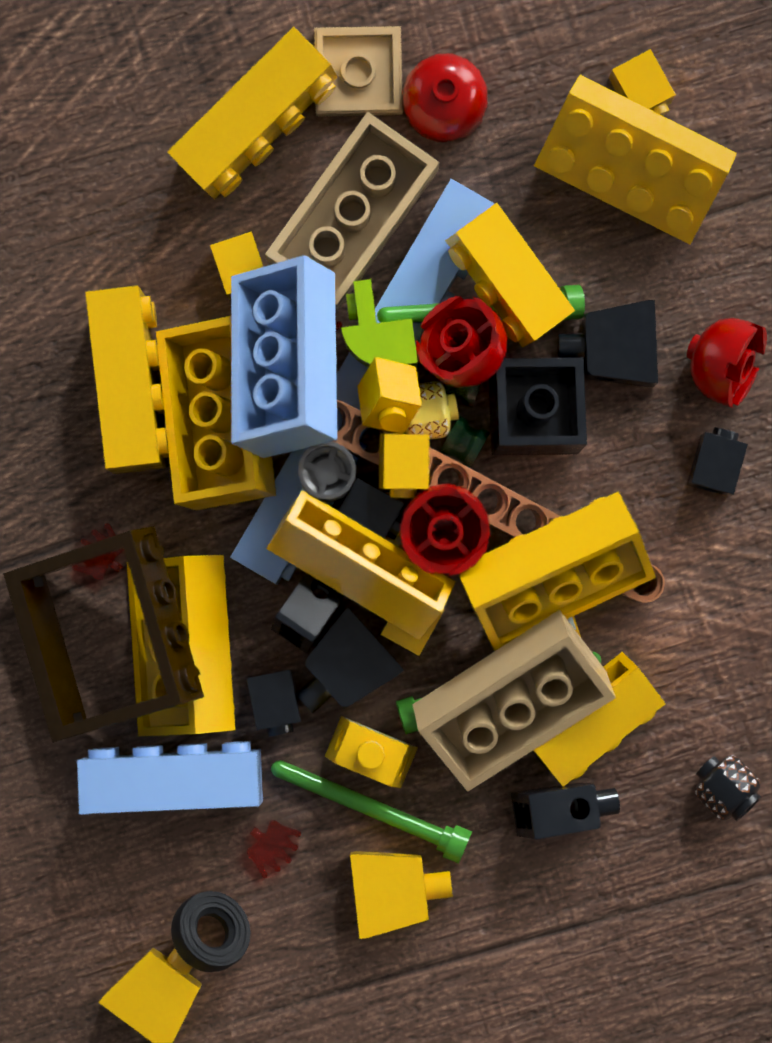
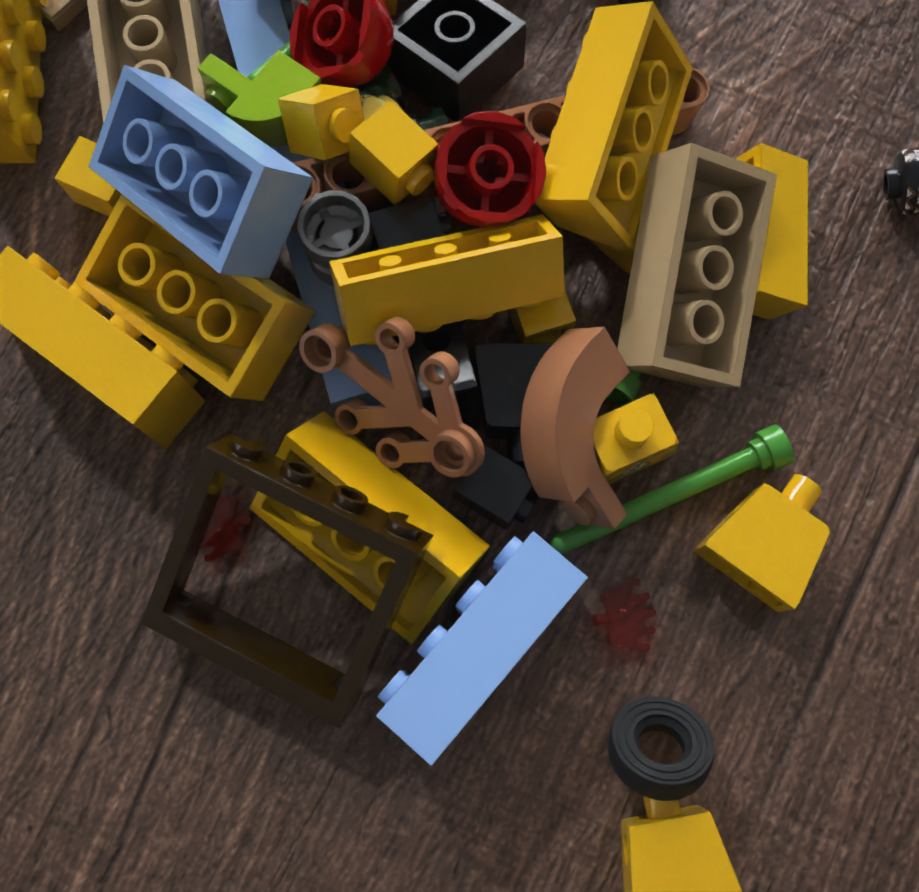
camera: 45 degrees left, 10 degrees down
(264, 650) = (401, 405): none -> nougat plant
(342, 703) = (561, 420): none -> nougat arch
(547, 810) = (833, 315): black torso -> none

